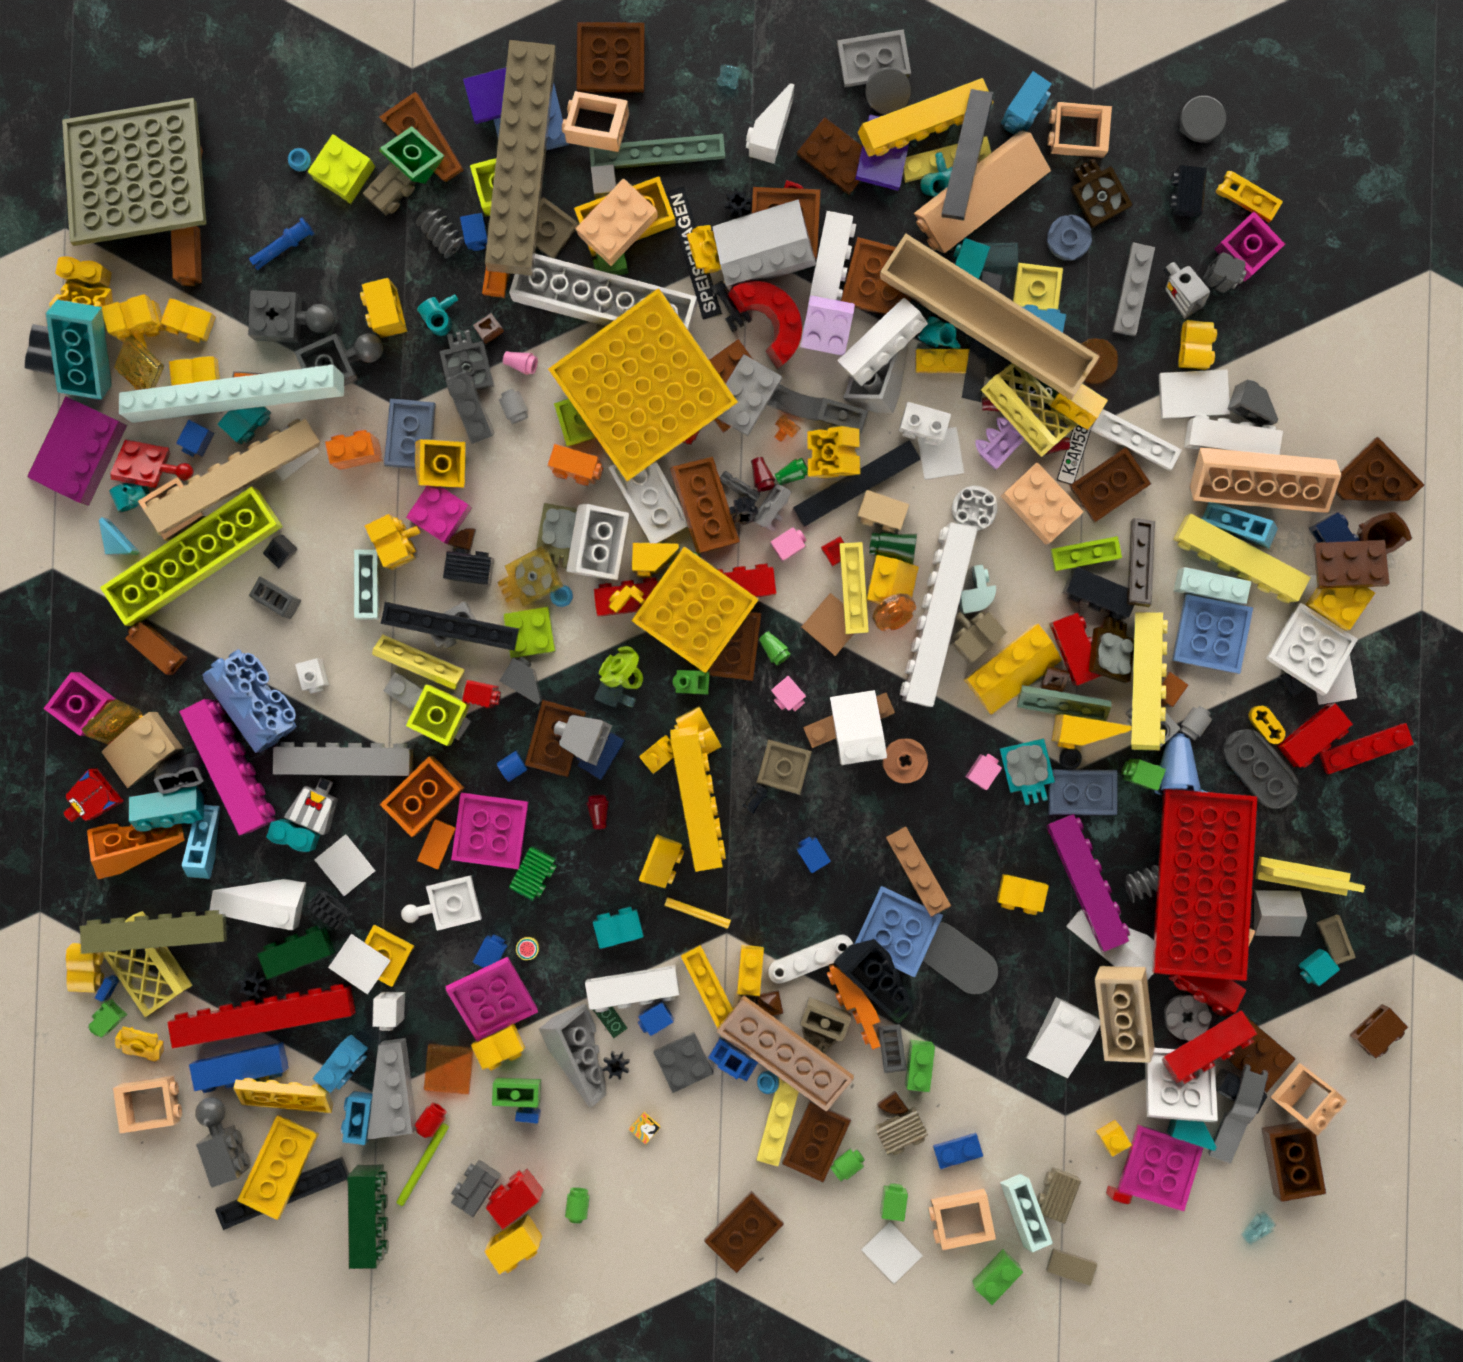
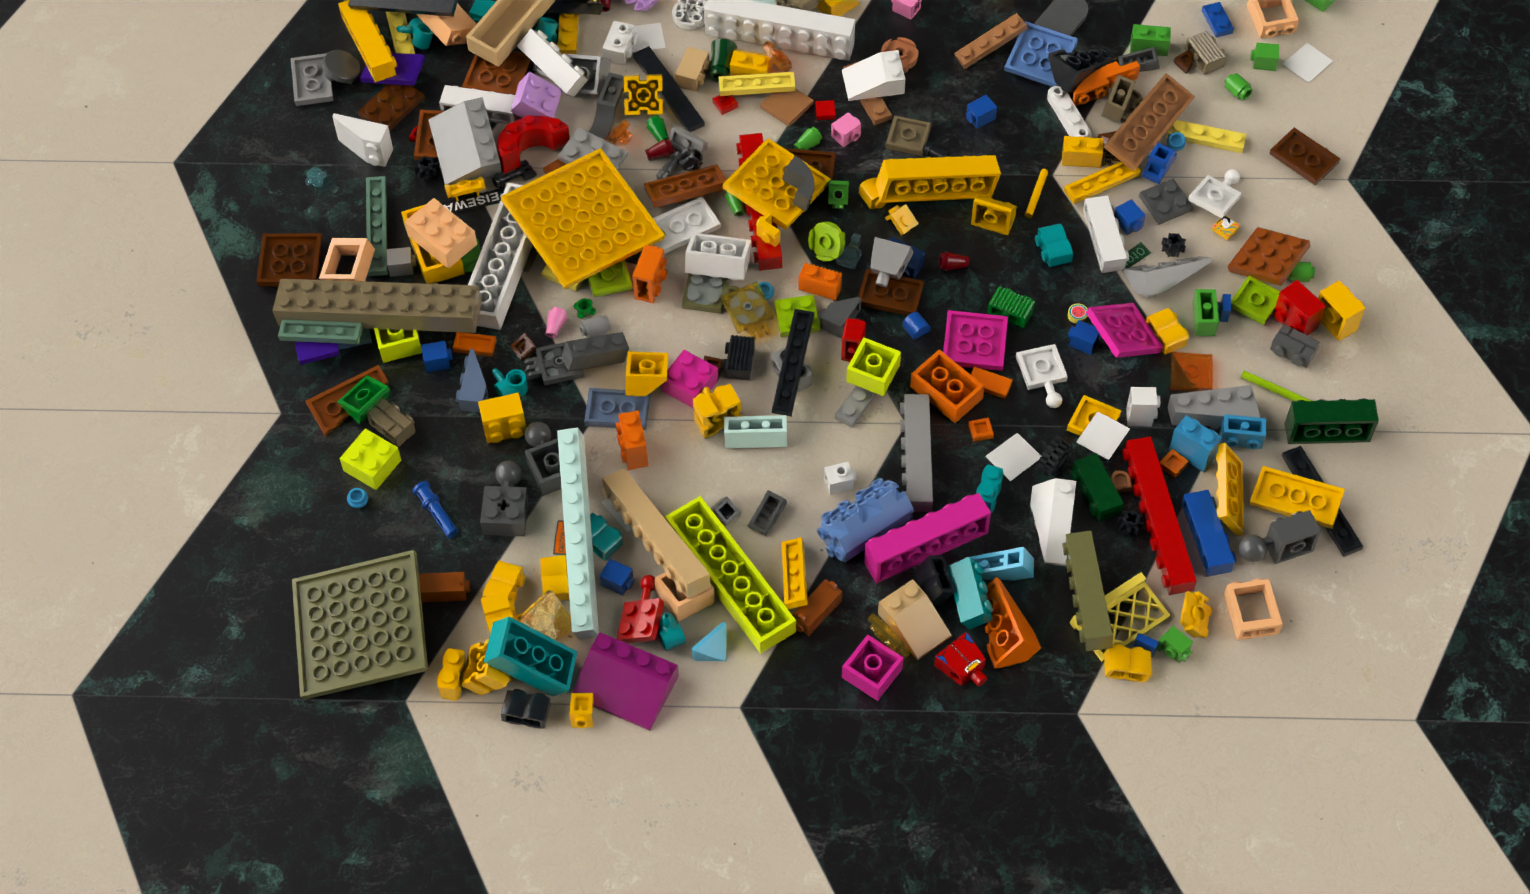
camera: 90 degrees left, 30 degrees down
(42, 406) = (581, 710): none -> yellow bracket
(190, 624) = (794, 573): none -> yellow plate
(308, 978) = (1121, 481): none -> medium nougat tile
(314, 807) = (961, 474): torso -> none
(330, 1037) = (1173, 463): none -> orange tile
(377, 831) = (981, 429): none -> orange tile
(418, 662) = (823, 399): light yellow plate -> none
(430, 1120) = (1236, 378): red brick -> none
(434, 276) = (472, 385): none -> sand blue slope
(439, 232) = (435, 379): dark grey piece -> none
(492, 97) = (320, 331): none -> sand green plate
(536, 390) = (584, 303): none -> green plate
(540, 1152) = (1255, 300): none -> lime plate
(568, 658) = (820, 281): none -> orange brick
(595, 1173) = (1269, 256): none -> dark orange plate
(652, 557) = (732, 216): yellow slope -> none
(686, 1120) = (1216, 195): none -> white plate
(696, 636) = (800, 177): none -> dark grey brick
(788, 543) = (719, 131): bright pink brick -> none
(816, 1141) = (1221, 108): reddish brown plate -> none
(822, 670) = (825, 110): none -> red tile

